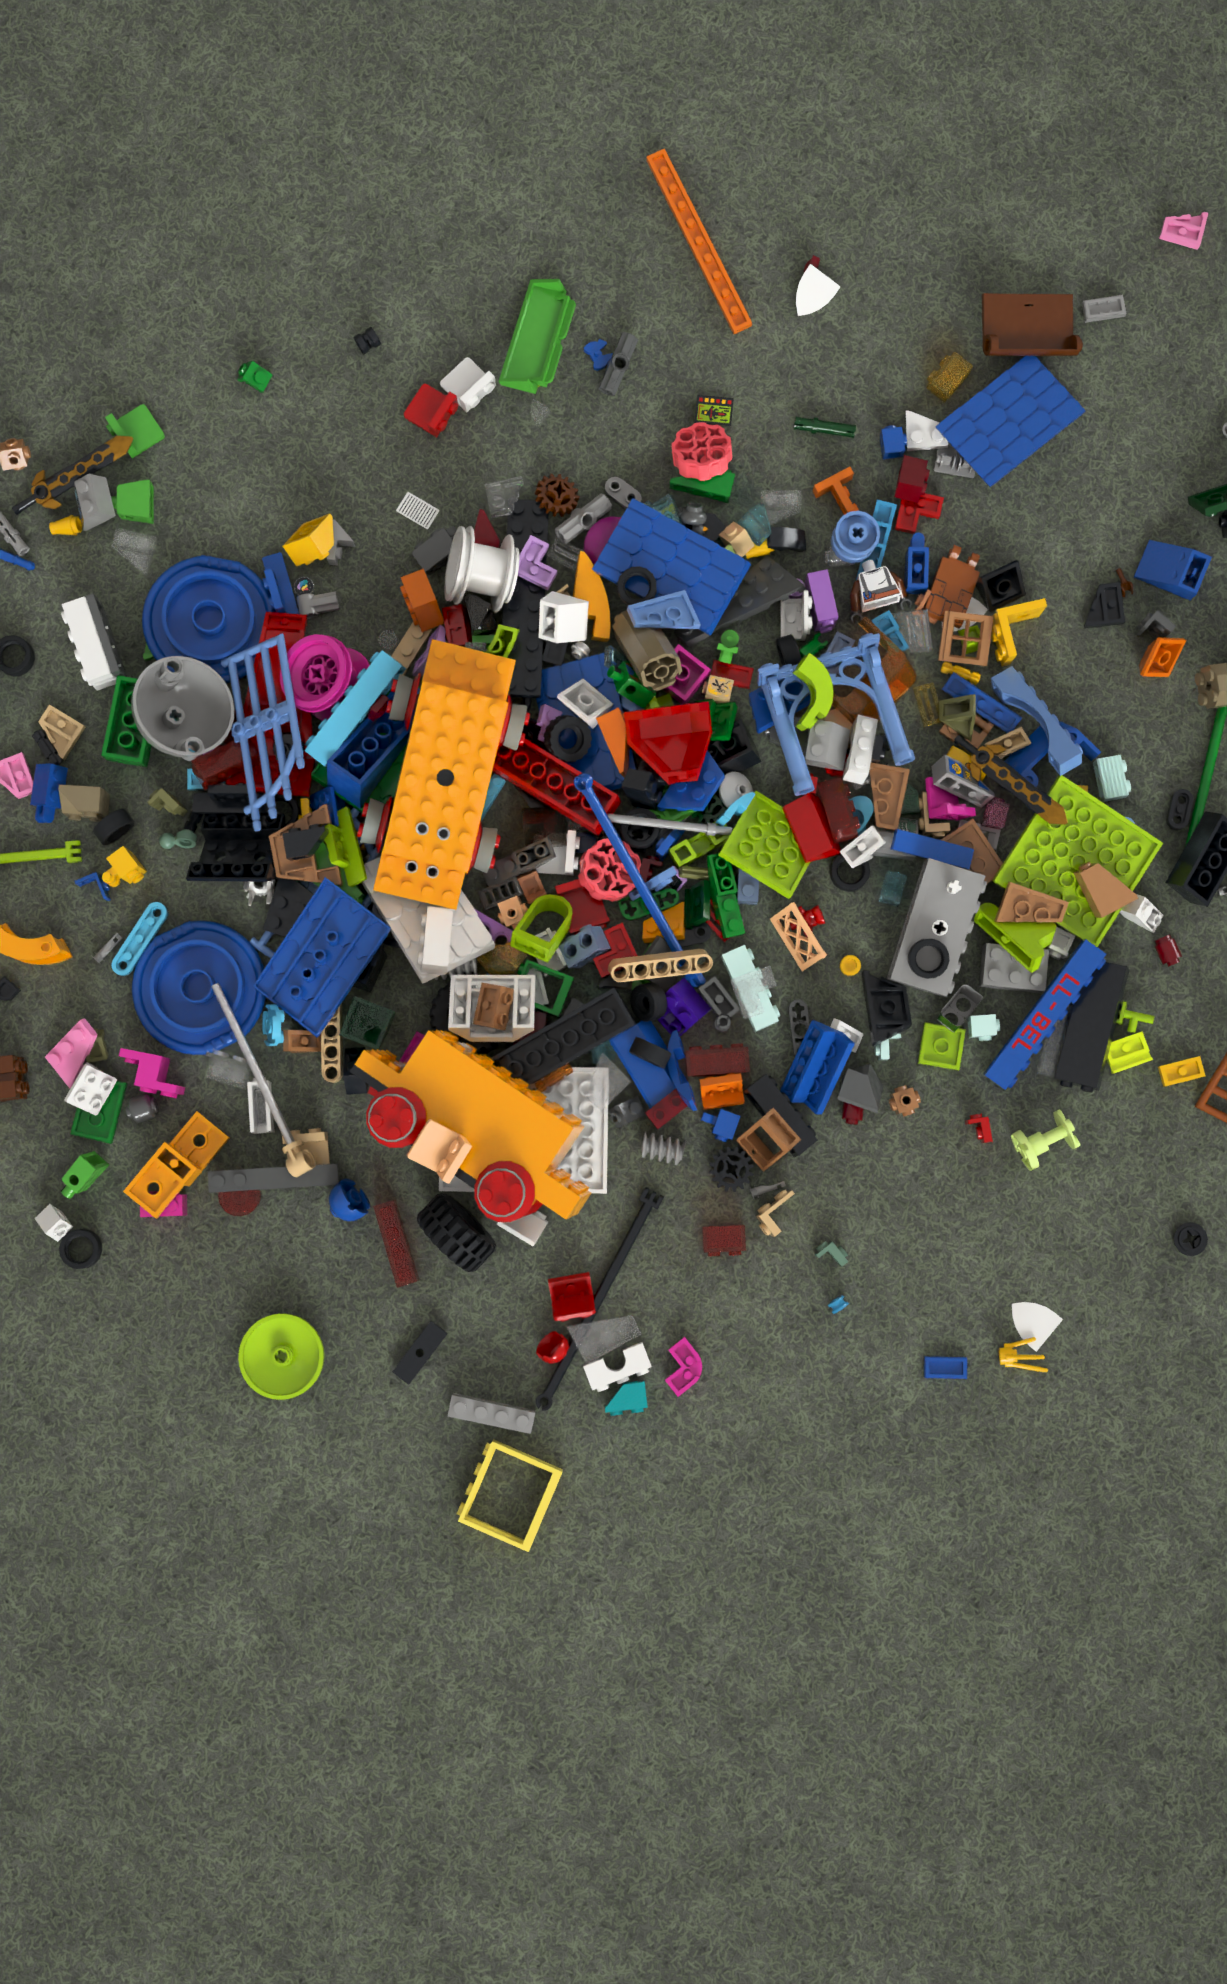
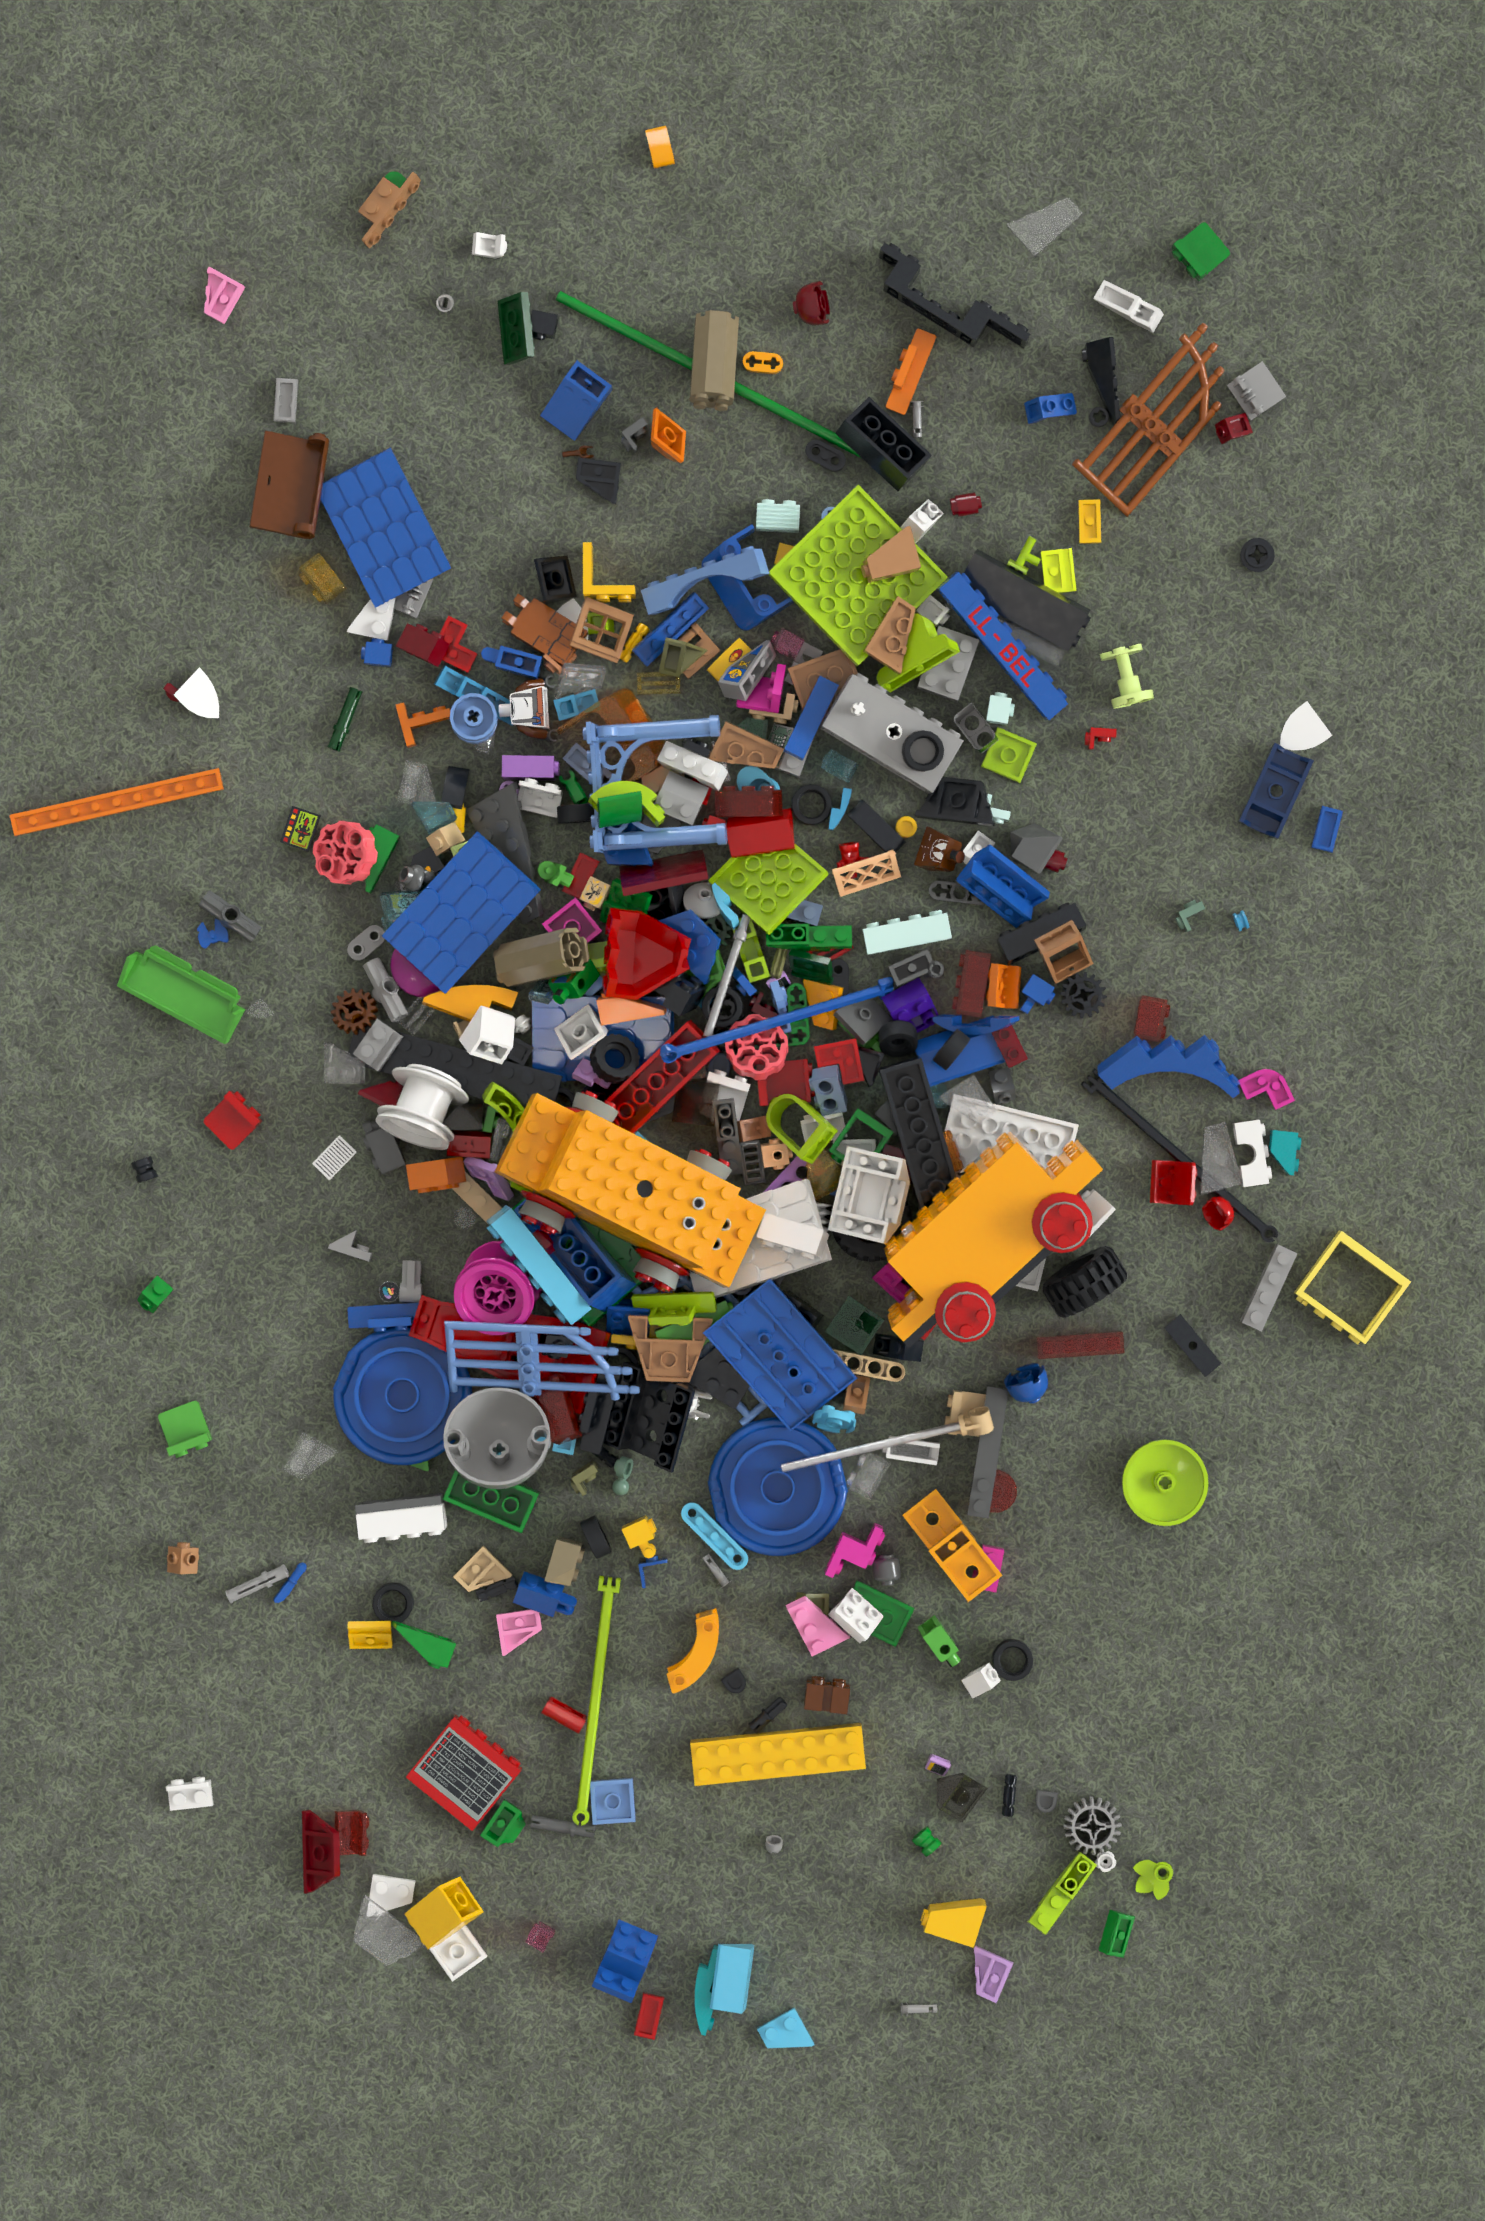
camera: 75 degrees left, 5 degrees up
(46, 490) = (219, 1501): sword -> none
(66, 526) = (269, 1521): yellow cone -> none
(93, 500) = (252, 1487): light grey slope -> none
(135, 501) = (260, 1446): bright green torso -> none
(303, 843) = (664, 1346): black slope -> none
(311, 541) = (345, 1273): yellow slope -> none
(439, 1150) = (1008, 1275): light nougat bracket -> none
(468, 383) = (214, 1076): white bracket -> none
(493, 1006) = (871, 1194): medium nougat bracket -> none
(530, 521) = (378, 1045): none -> light grey plate
(531, 566) = (427, 1054): lavender plate -> none
(636, 571) = (482, 968): black tyre -> none
(661, 1148) = (1047, 1058): light grey piece -> none
(665, 612) = (511, 929): medium blue wing -> none
(669, 969) = (872, 1010): tan beam -> none
(693, 1266) = (1170, 1055): none -> blue arch
(747, 989) = (907, 936): clear plate -> none
(753, 743) = (664, 873): none -> dark red tile
(764, 1189) = (1110, 972): light grey piece -> none
(767, 1224) = (1131, 969): tan bracket -> none
(804, 683) = (619, 809): none -> green slope
(834, 999) = (939, 852): none -> reddish brown torso
(843, 936) = (875, 827): none -> black beam
(846, 897) = (837, 814): none -> dark azure slope
(863, 847) = (793, 787): white slope -> none
(897, 1104) = (1049, 812): medium nougat brick -> none
(948, 1303) = (1270, 813): none -> dark blue piece
(1007, 777) = (757, 624): sword -> none
(1009, 1356) = (1332, 764): yellow plant -> none
(1011, 741) = (719, 614): tan slope -> none

